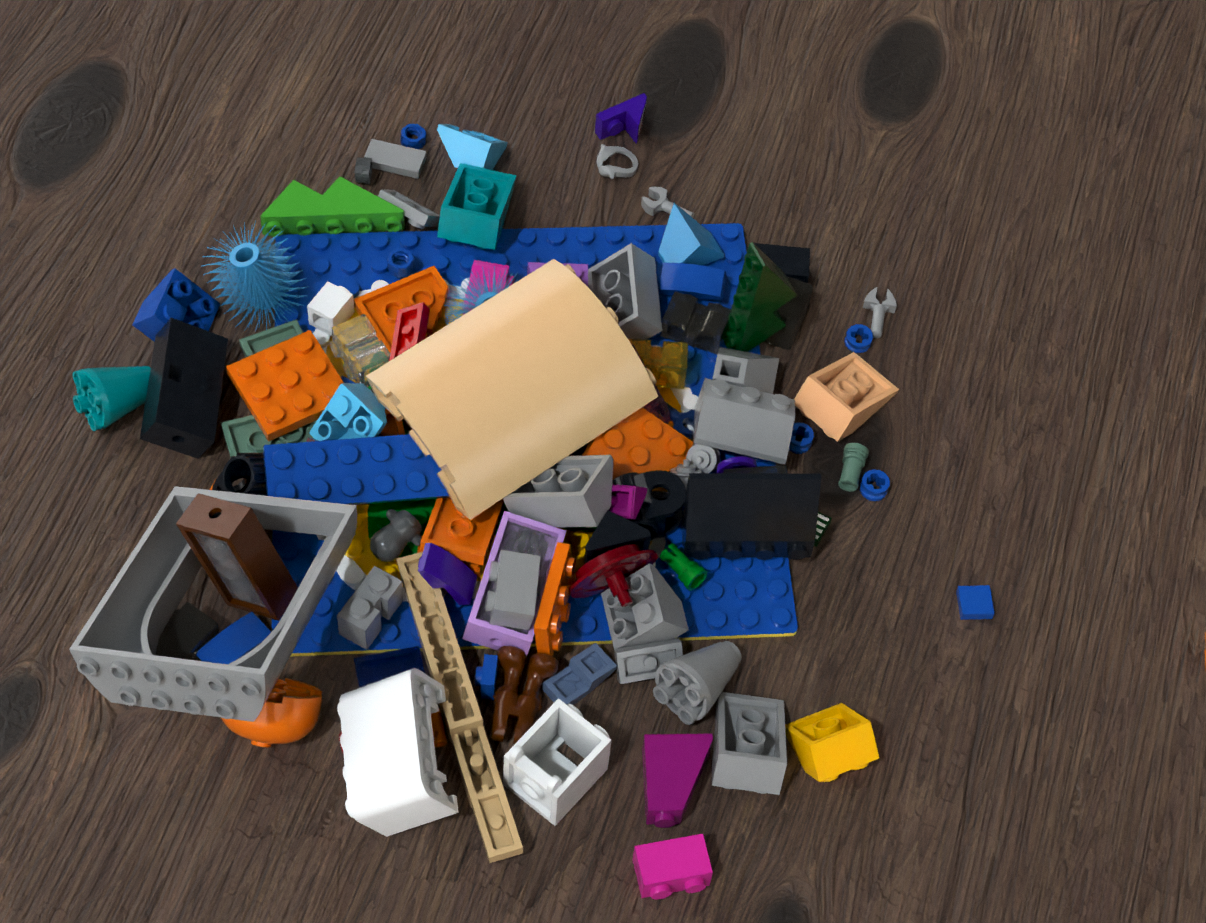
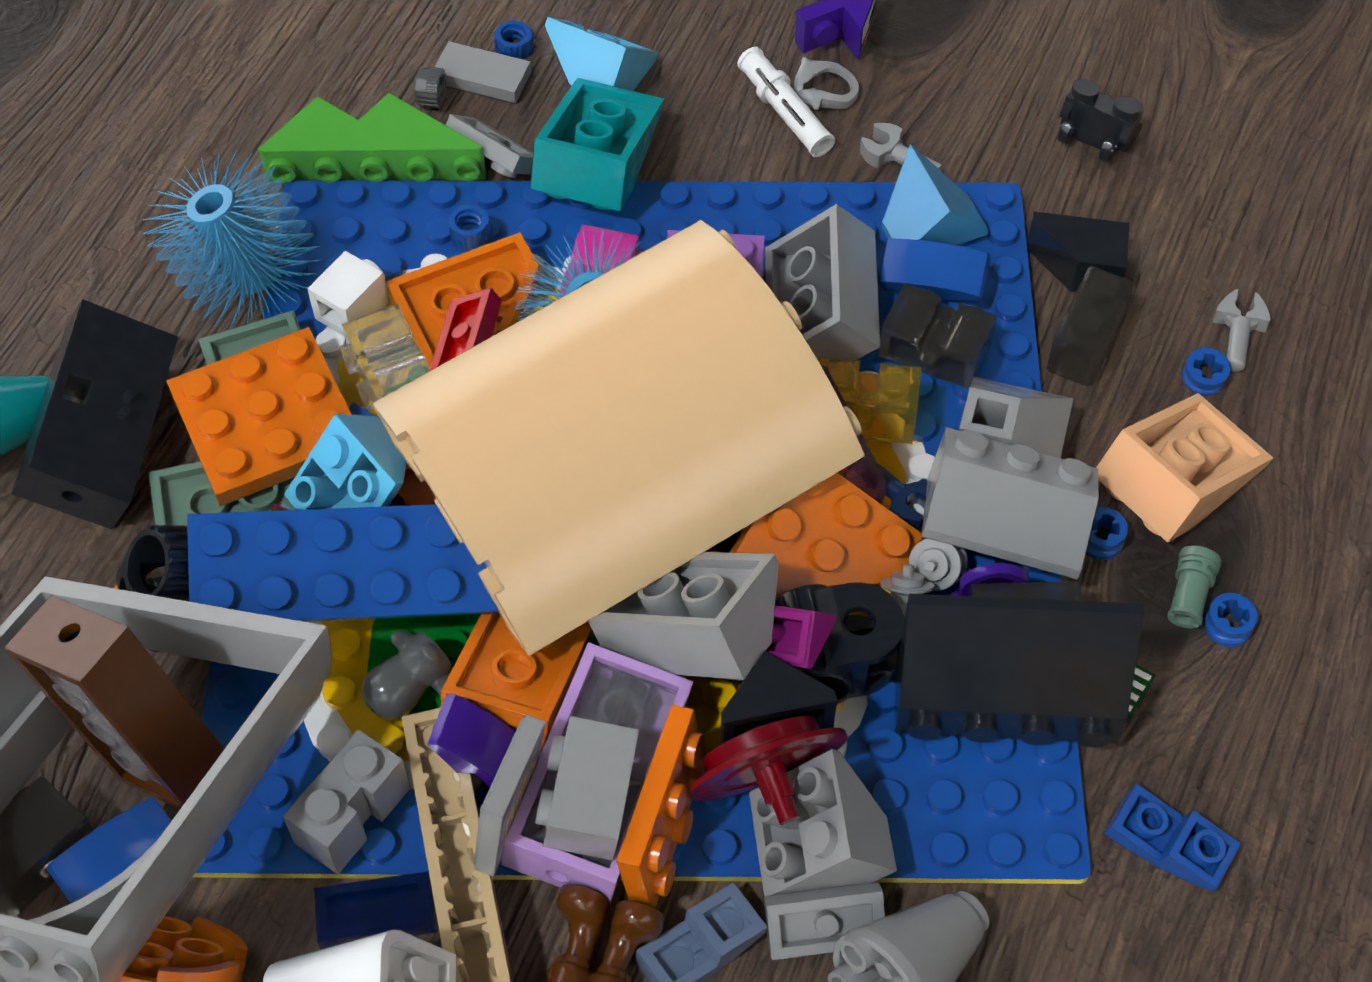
camera: 10 degrees right, 0 degrees up
(177, 299) = (114, 276): blue slope -> none
(467, 596) = (507, 793): none -> light grey tile
(486, 676) = (539, 935): blue plate -> none
(573, 154) = (758, 70): none -> white pin
(688, 571) = (902, 761): green pin -> none
(755, 305) = (1043, 291): dark green slope -> none
(790, 181) = (1099, 119): none -> black piece
(840, 609) = (1175, 843): none -> blue slope

